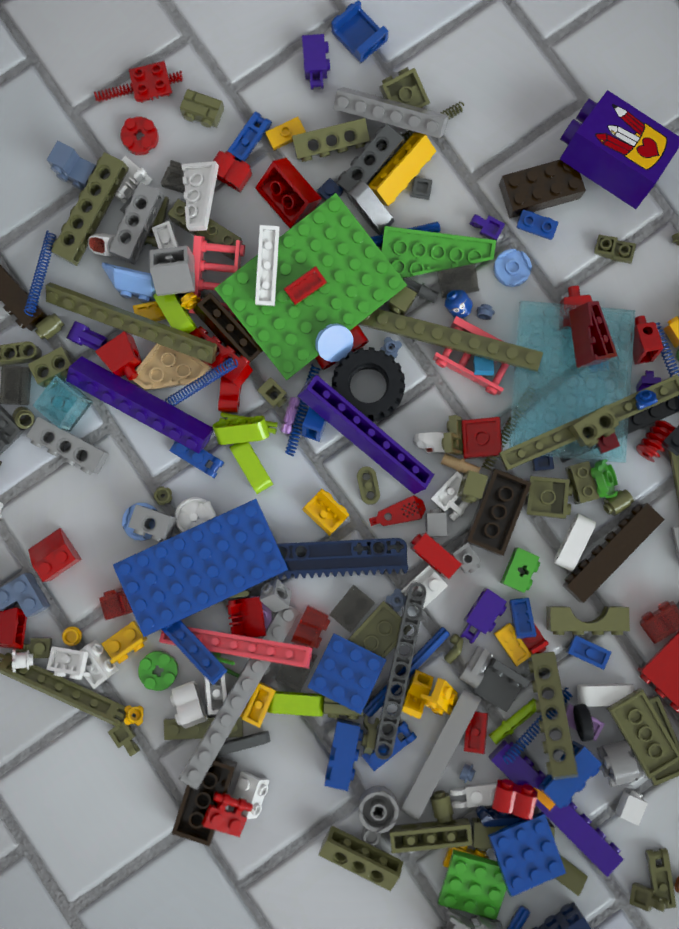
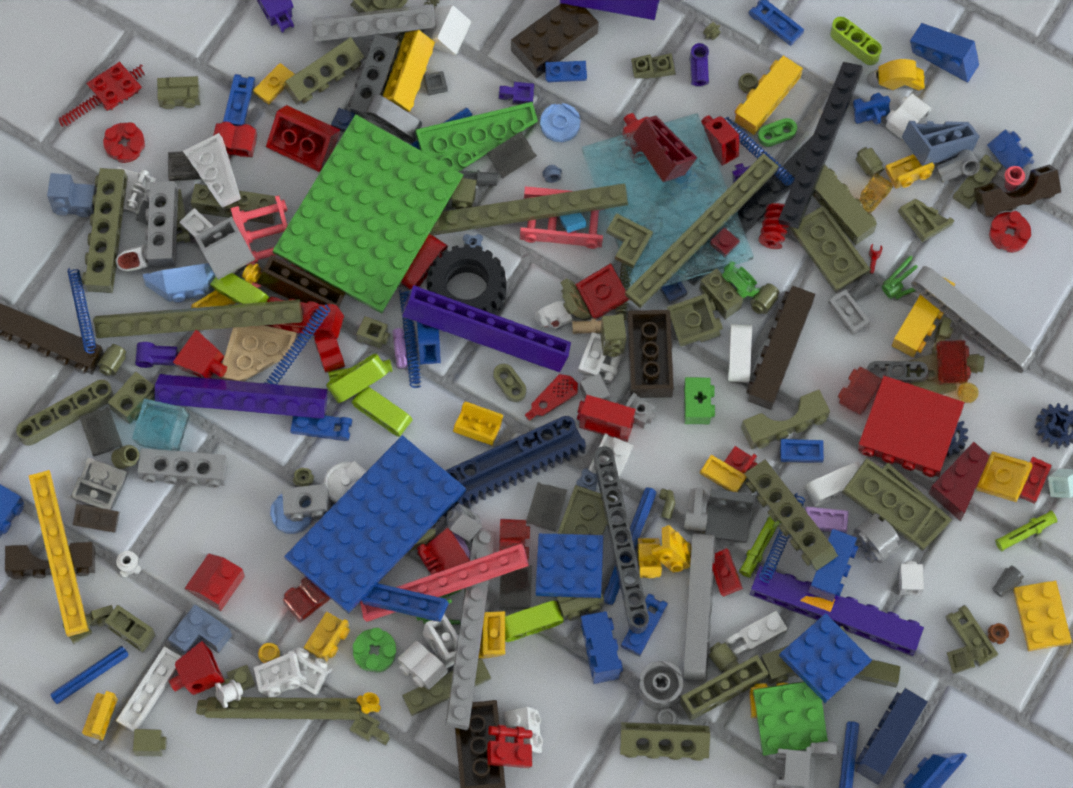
camera: 30 degrees left, 15 degrees down
(244, 742) = (496, 680): dark grey beam -> none
(267, 265) = (318, 206): white plate -> none
(305, 285) = (363, 211): red plate -> none
(334, 342) = (415, 255): light blue tile -> none
(369, 738) = (620, 619): olive plate -> none
(453, 144) = (449, 29): none -> white slope
(458, 303) = (521, 174): blue head -> none
(467, 773) = (734, 615): sand blue plate -> none
(483, 614) = (680, 456): dark purple brick -> none
(494, 818) = (786, 638): dark blue plate -> none
(514, 798) = (789, 611): red brick -> none
(522, 618) = (721, 444): blue plate -> none
(529, 404) = (633, 236): none -> olive plate
(583, 722) = (823, 511): black tyre -> none
(592, 423) = (701, 228): olive brick -> none
(645, 398) = (743, 186): blue plate -> none
(655, 265) = (699, 66): none -> dark purple piece

